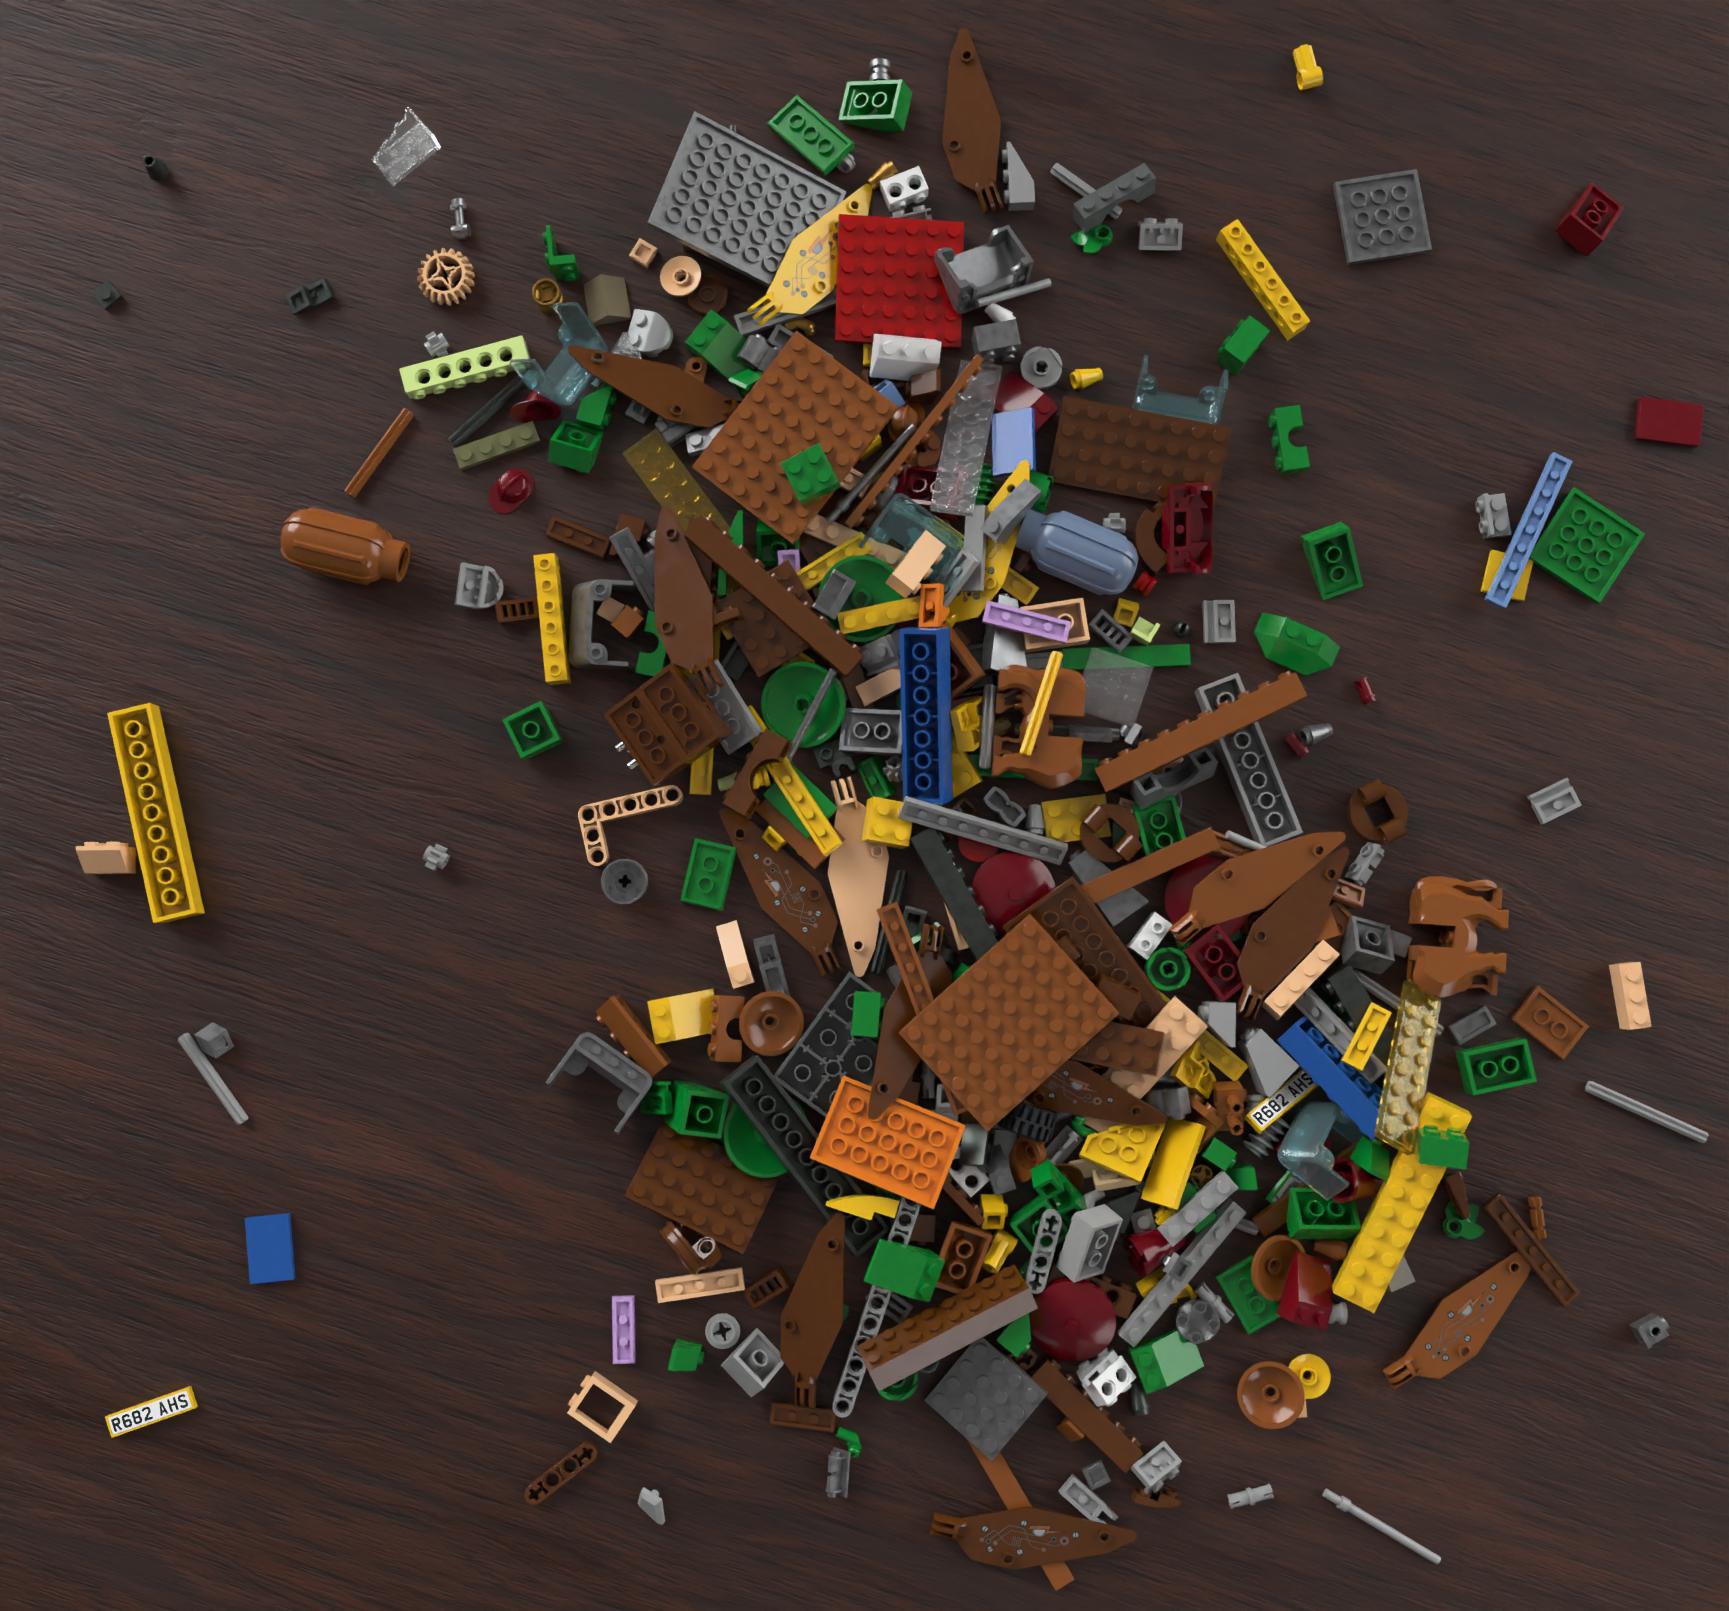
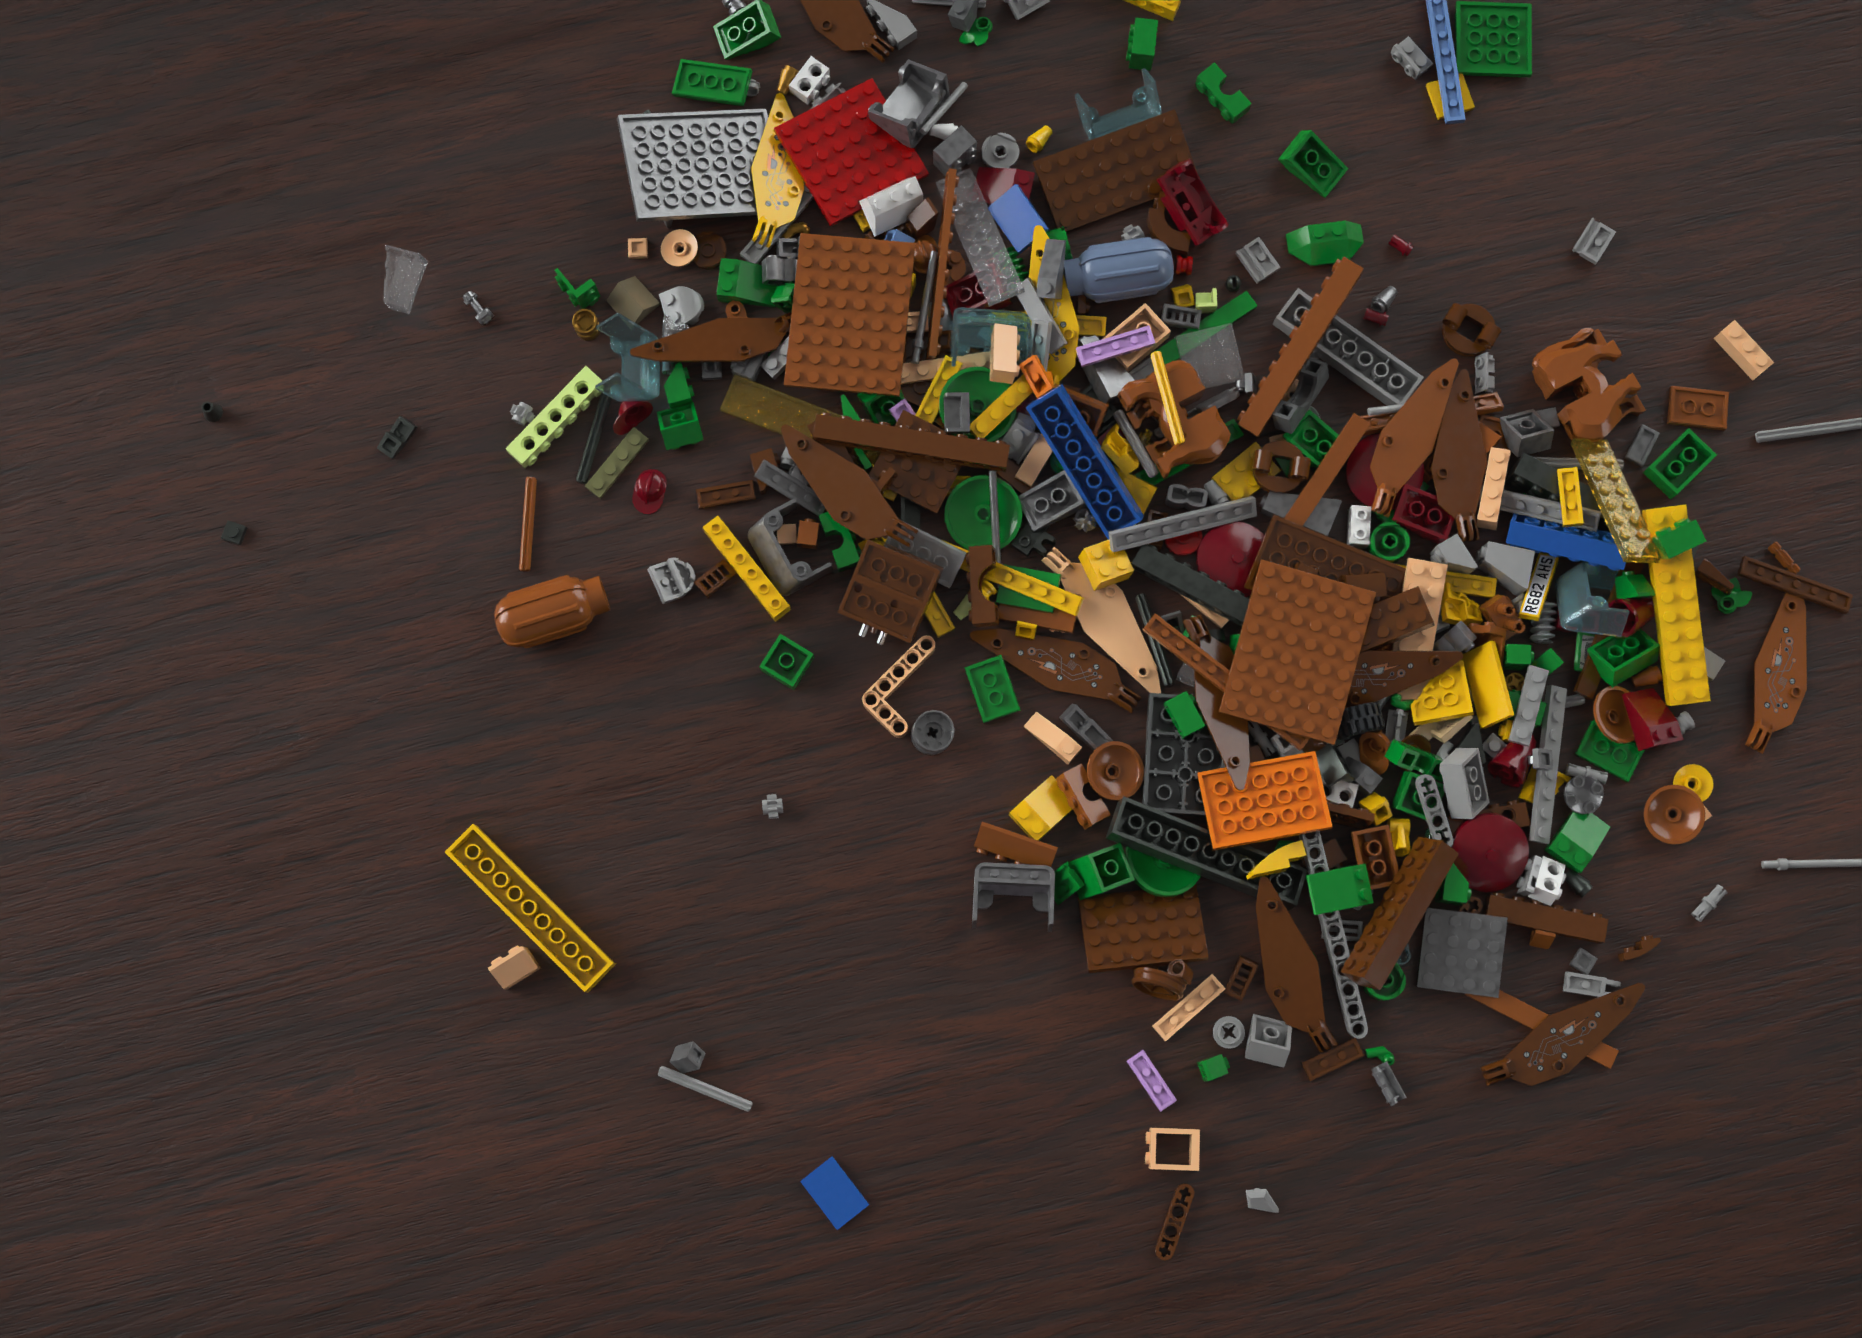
camera: 30 degrees left, 5 degrees down
(462, 271) = (503, 343): light nougat gear -> none
(810, 474) = (883, 333): green brick -> none
(875, 779) = (1072, 537): green slope -> none
(1157, 1467) = (1625, 924): light grey bracket -> none

